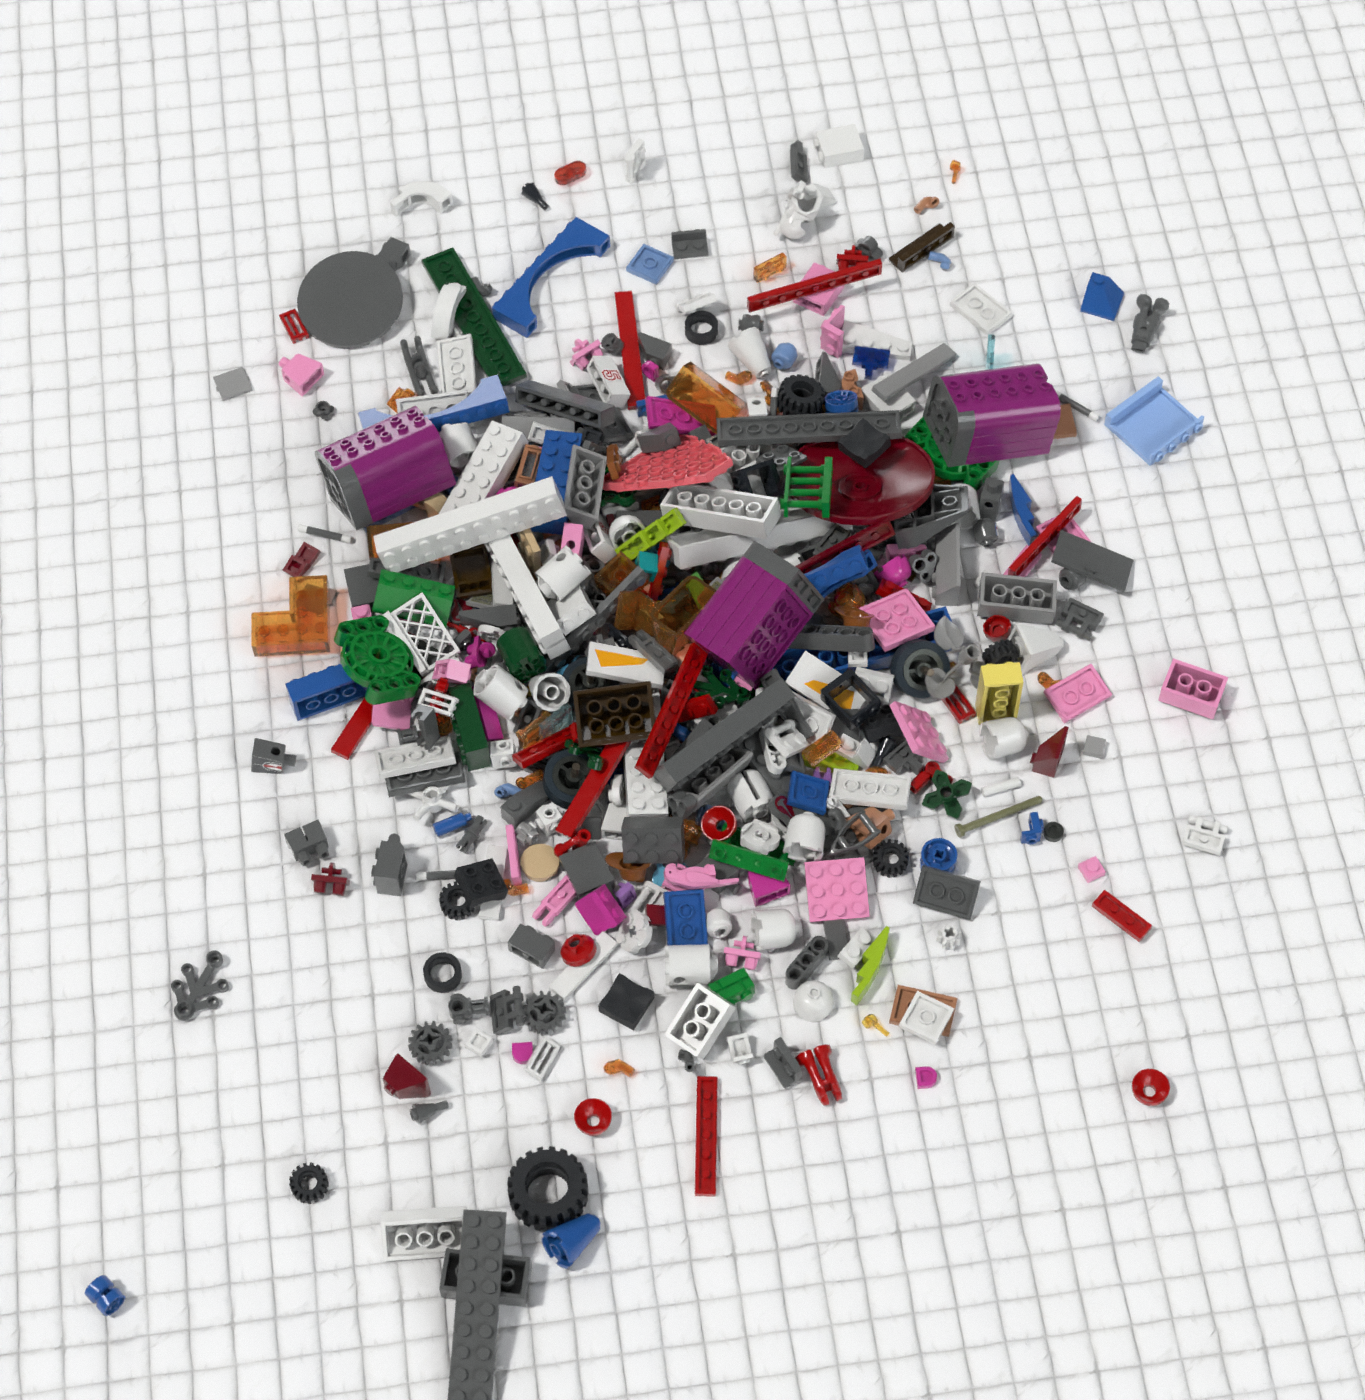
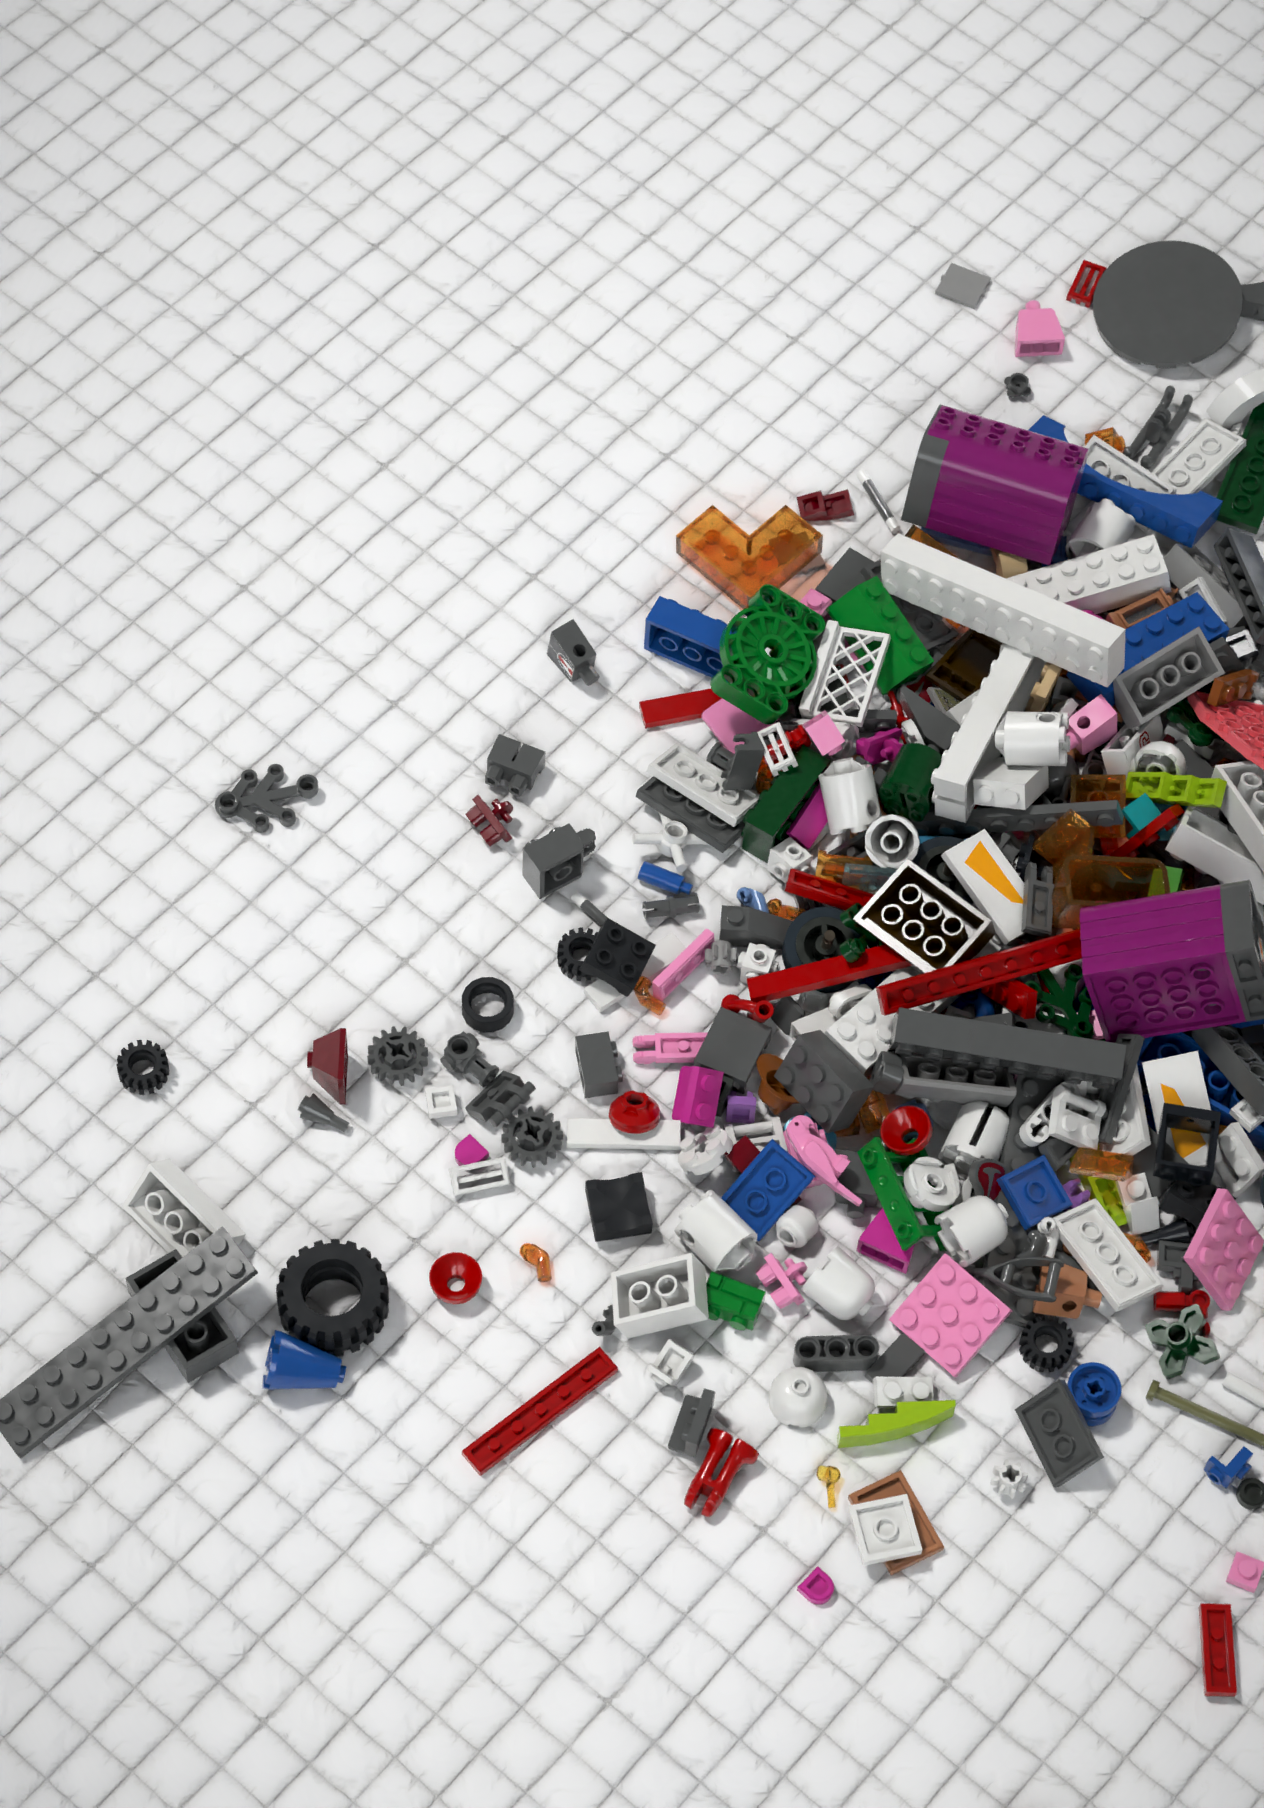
camera: 45 degrees right, 0 degrees up
(539, 862) = (700, 996): tan tile -> none

